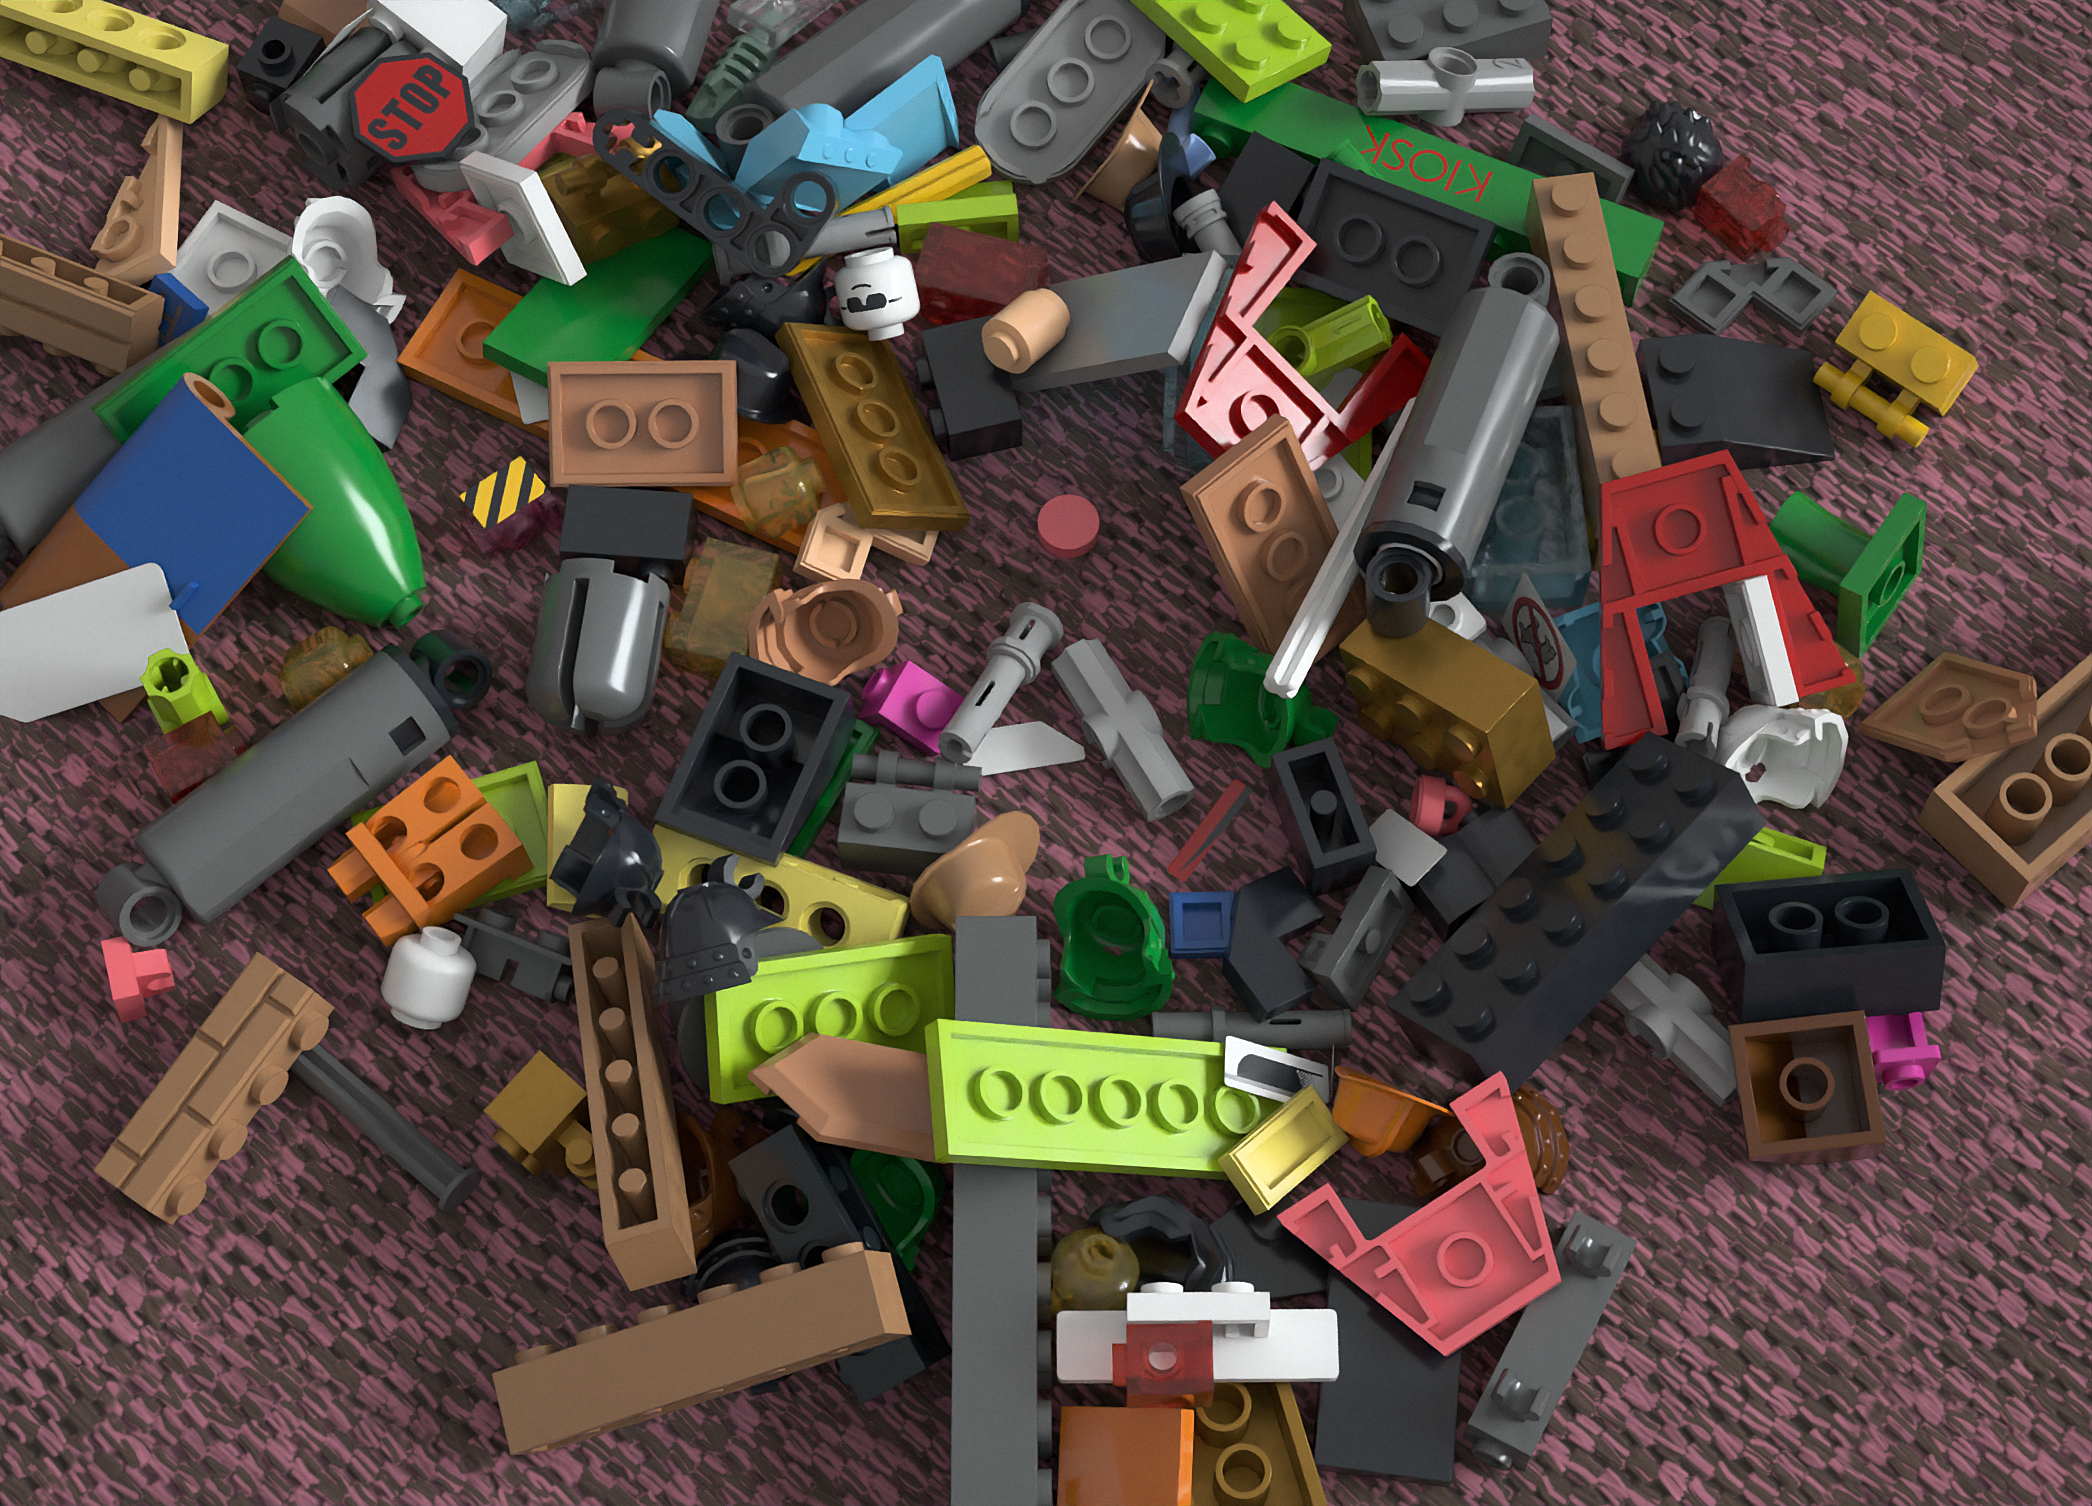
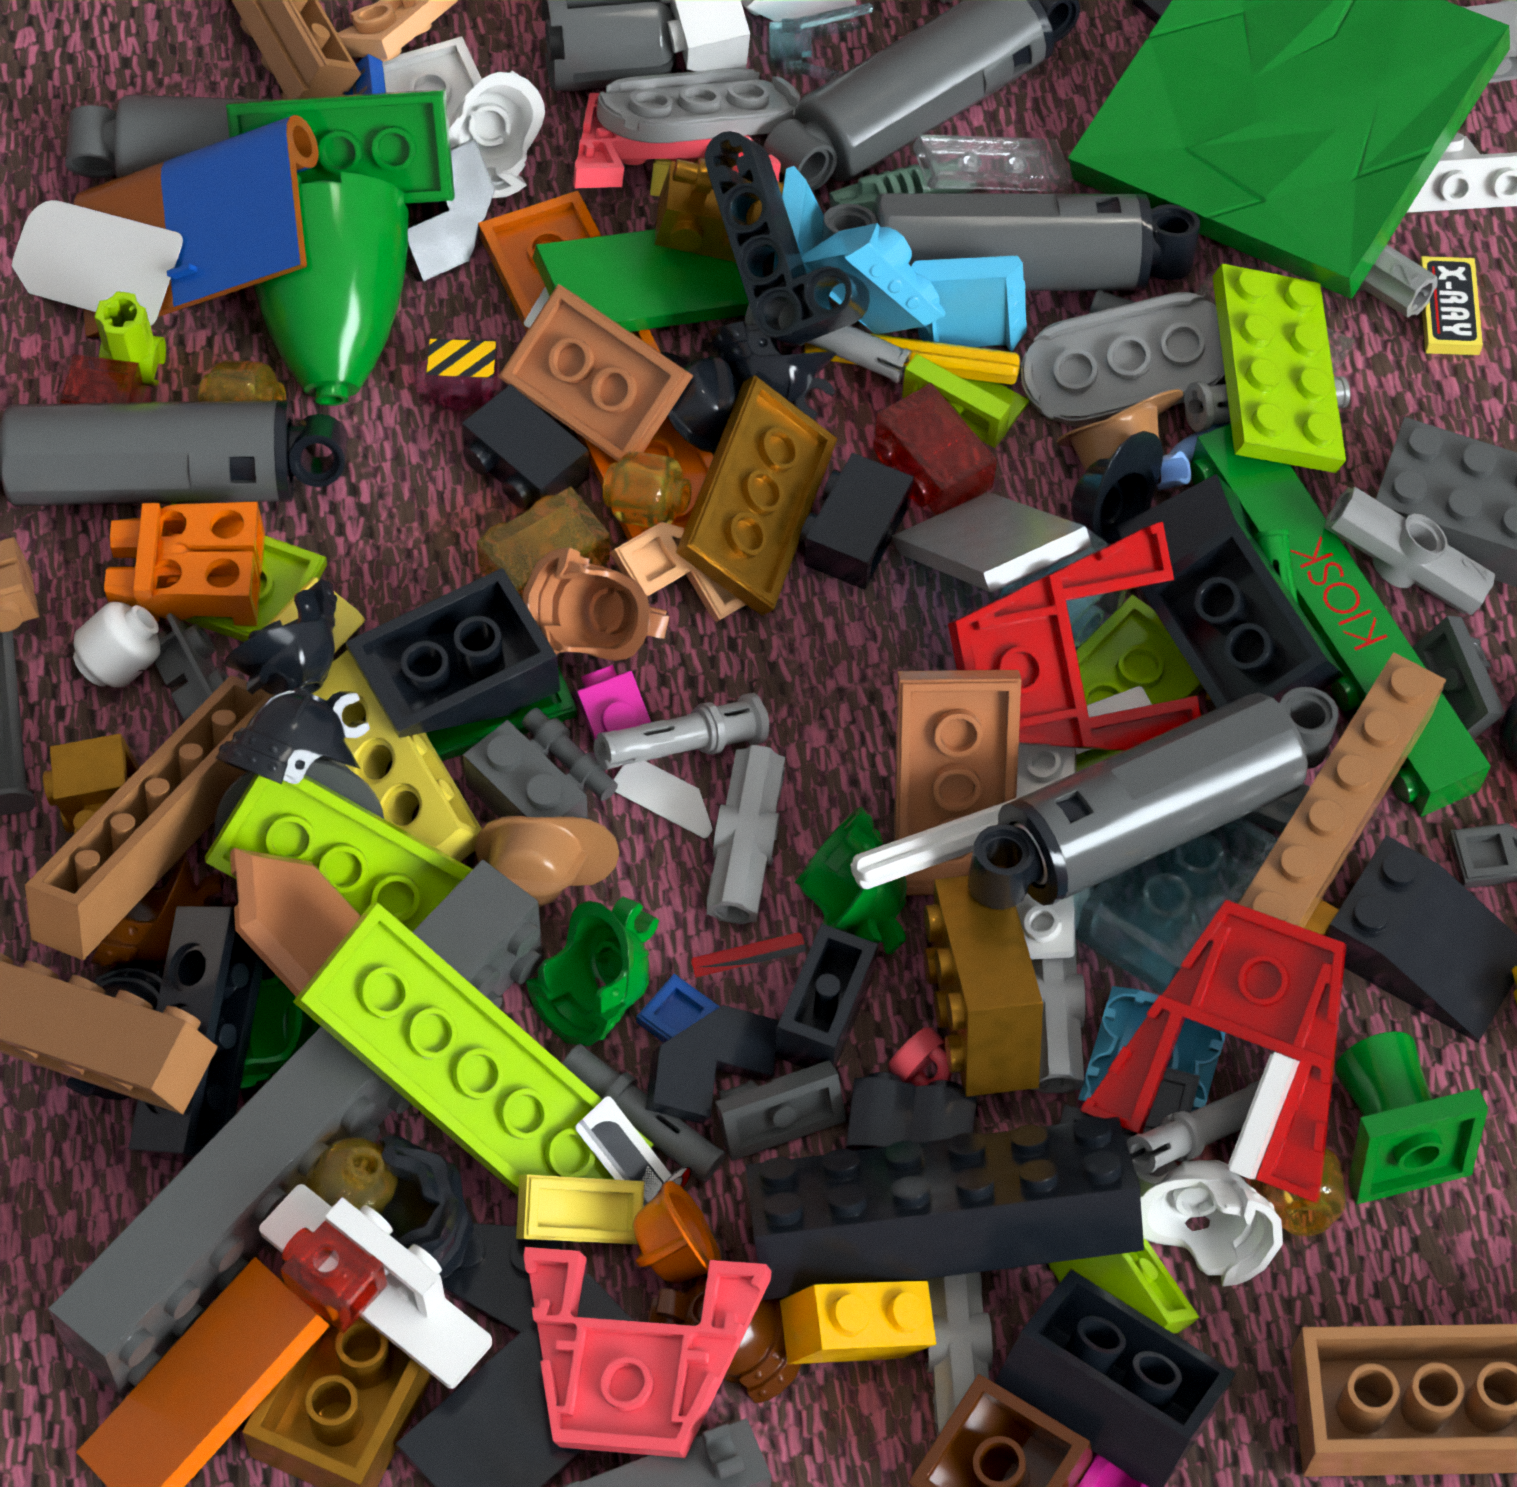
camera: 35 degrees right, 5 degrees down
(411, 109) = (627, 54): piece -> none
(539, 236) = (635, 194): white tile -> none
(597, 648) = (426, 508): dark grey cylinder -> none
(877, 293) = (843, 403): white head -> none
(1025, 330) = (922, 501): light nougat brick -> none
(1068, 526) = (843, 668): coral tile -> none
(1207, 224) = (1126, 513): light grey pin -> none
(1334, 341) = (1129, 667): lime piece -> none
(1404, 847) = (865, 1066): white sticker -> none
(1538, 639) = (1104, 996): clear sticker -> none
(1591, 1062) = (857, 1322): none -> yellow brick
(1958, 710) = (1385, 1288): nougat tile -> none

